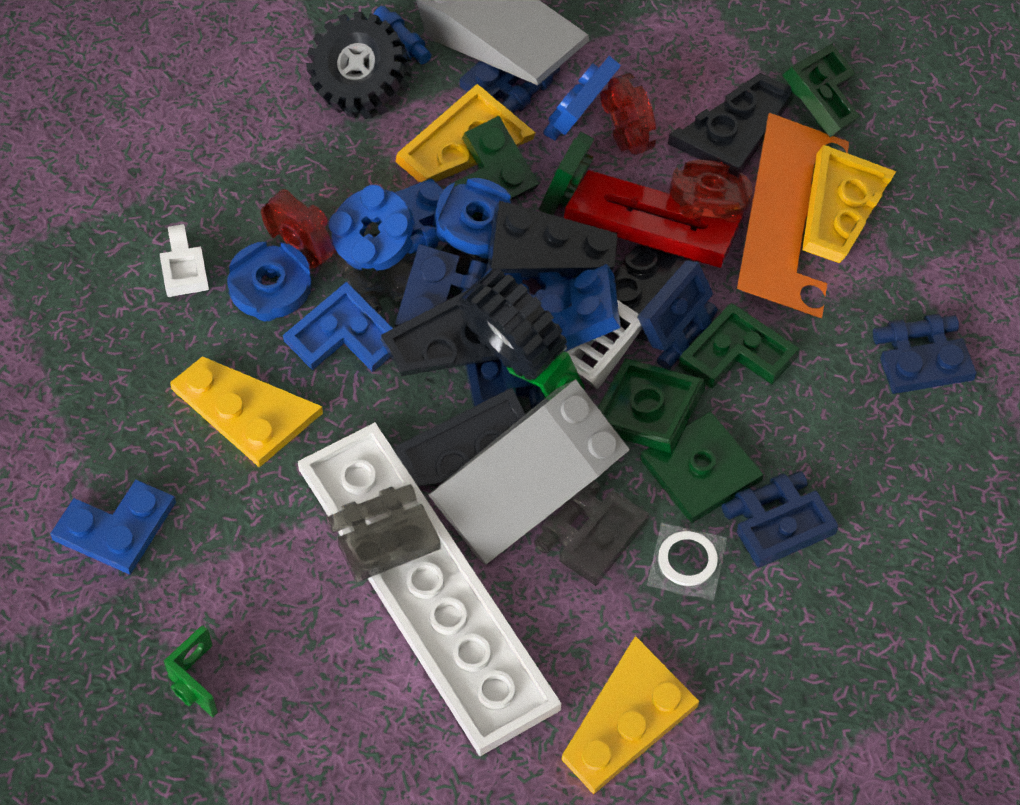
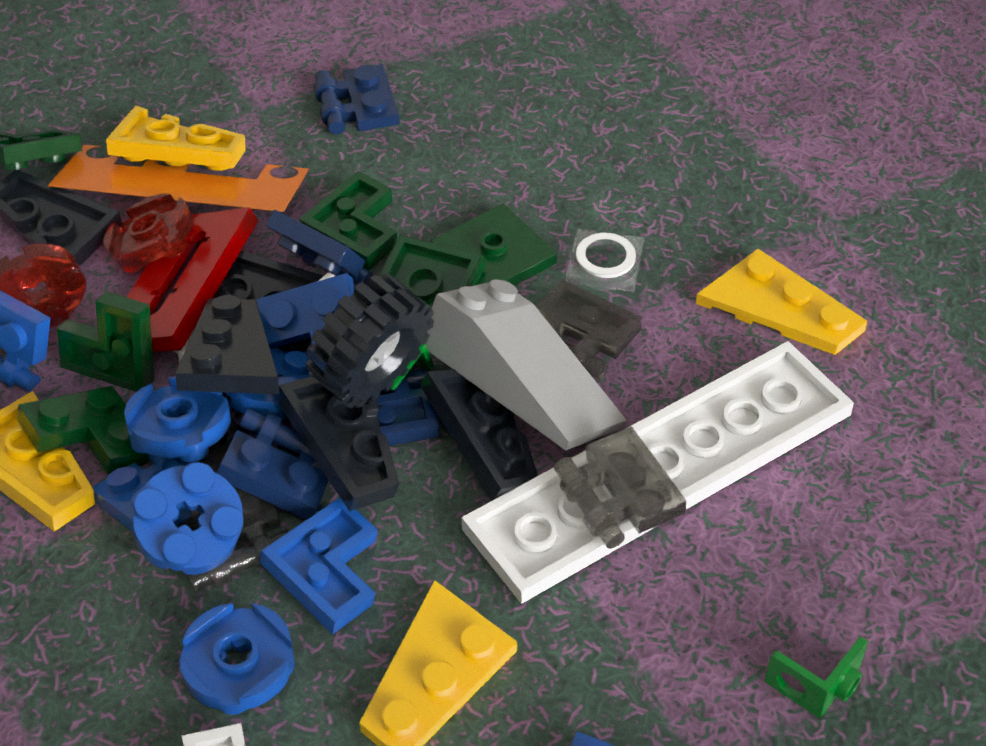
camera: 90 degrees left, 10 degrees down
(299, 227) = (171, 604): clear red plate -> none
(785, 528) = (561, 187): dark blue plate -> none

